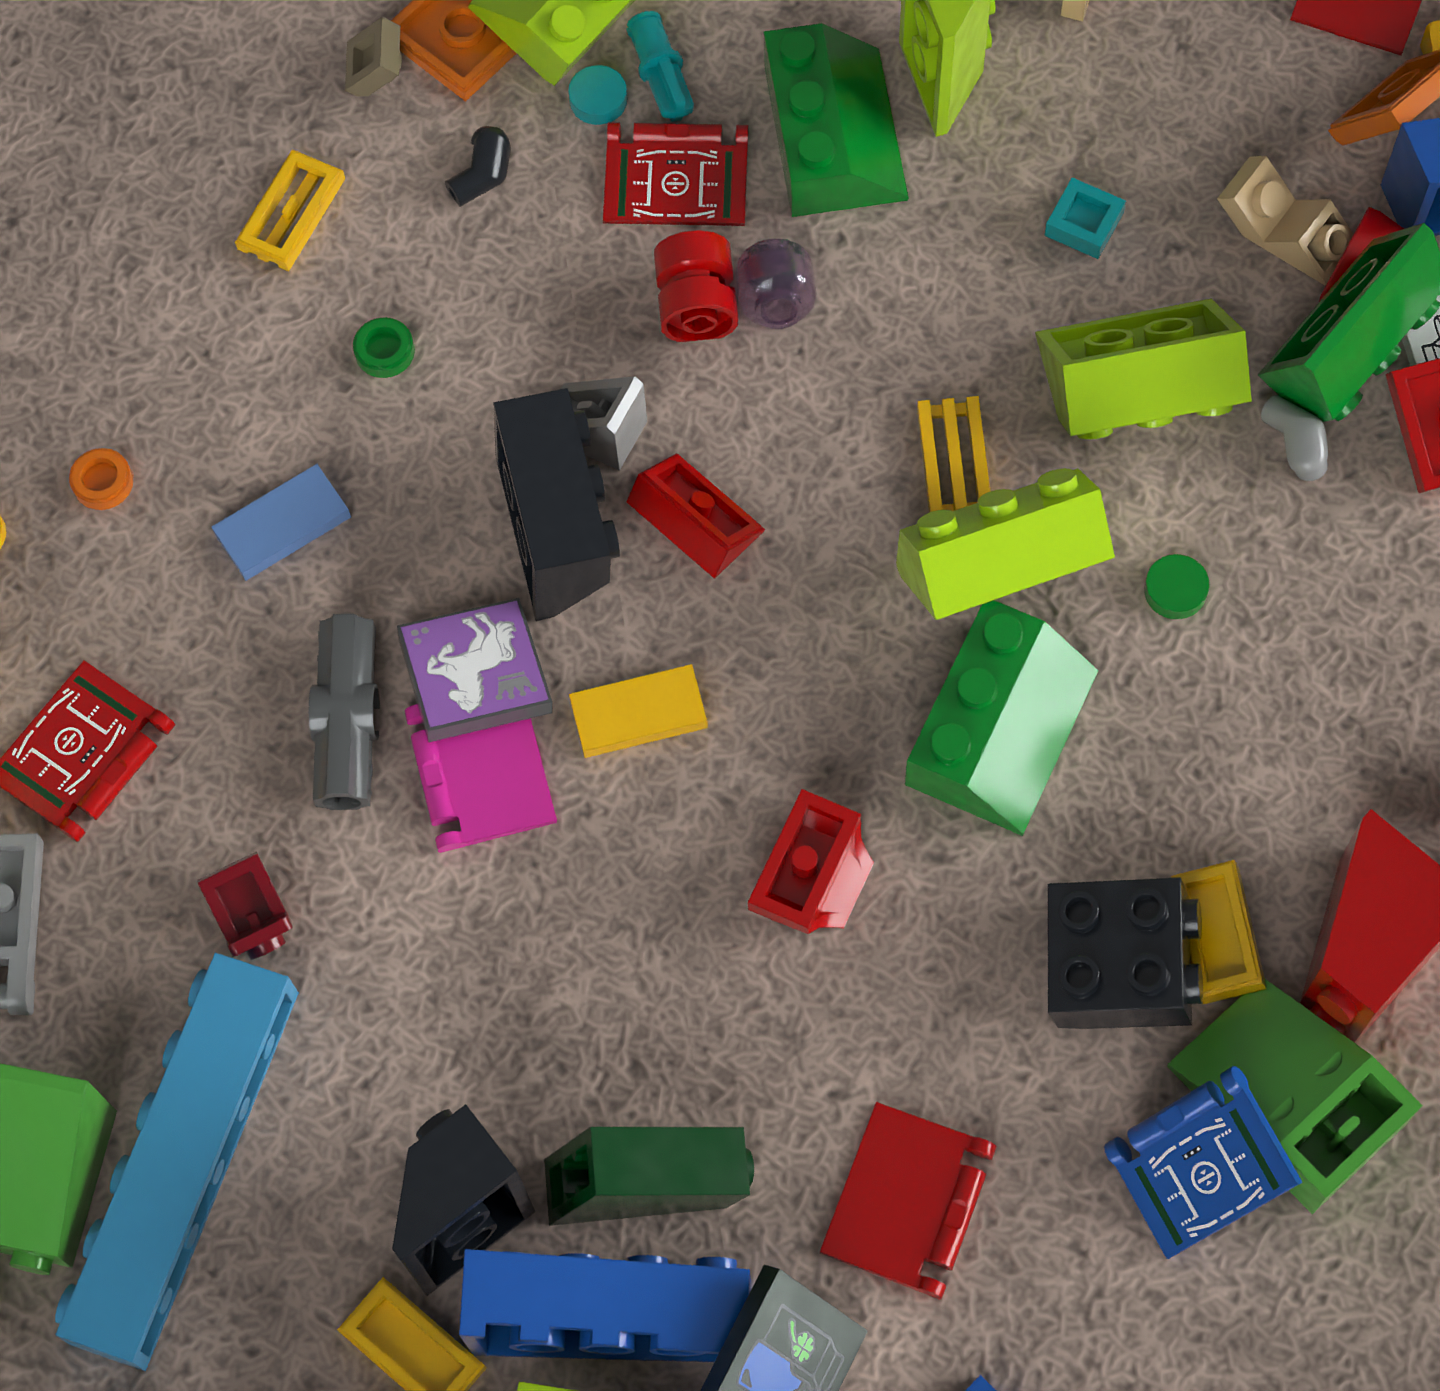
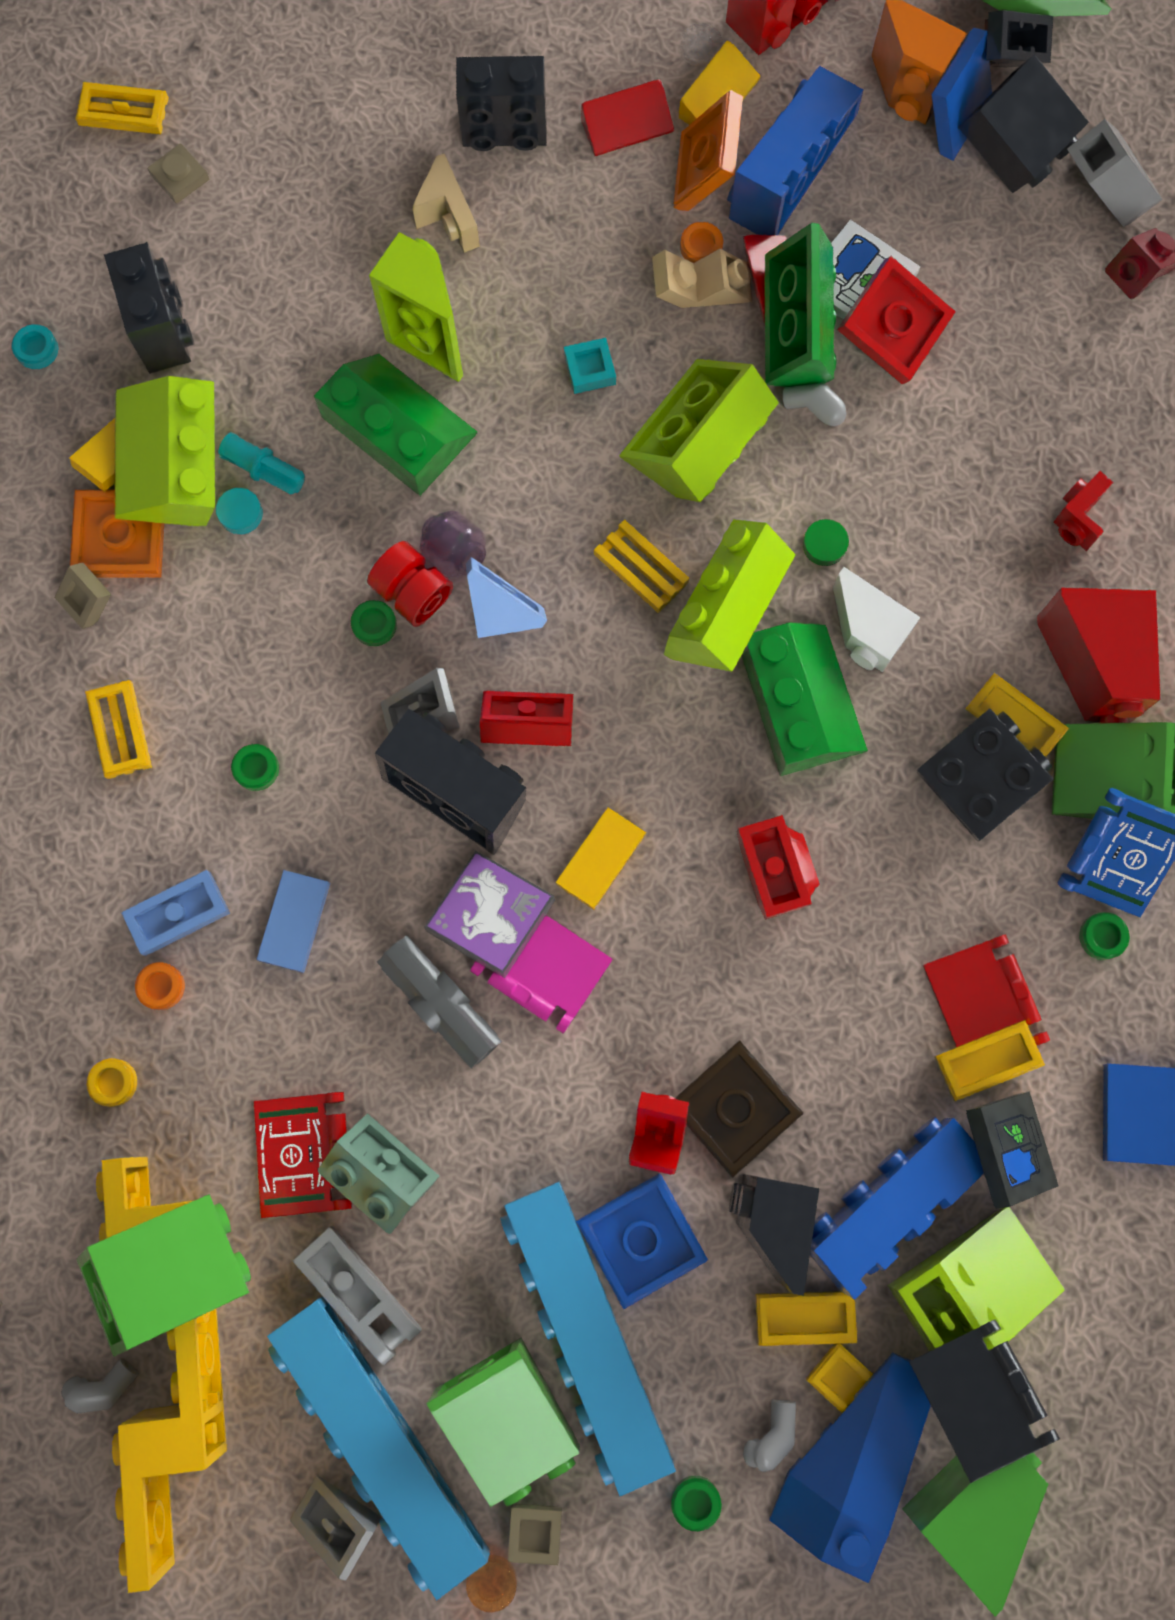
camera: 45 degrees left, 10 degrees up
(130, 822) = (377, 1173): none -> sand green bracket
(179, 421) = (175, 913): none -> medium blue plate
(246, 907) = (491, 1162): dark red bracket -> none
(321, 1121) = (641, 1241): none -> blue tile
(438, 1025) = (659, 1133): none -> red bracket
(487, 167) = (214, 606): black arm -> none
(540, 1072) = (737, 1109): none -> dark brown tile
(628, 301) = (373, 623): none -> green tile
(646, 1172) = (848, 1115): dark green slope -> none
(675, 175) = (330, 524): red piece -> none
(764, 371) = (499, 605): none -> light blue slope
(851, 1256) = (989, 1060): none -> yellow tile
(1106, 1242) = (1104, 936): none -> green tile
(1146, 704) = (870, 621): none -> white slope
(1325, 180) = (700, 240): none -> orange tile

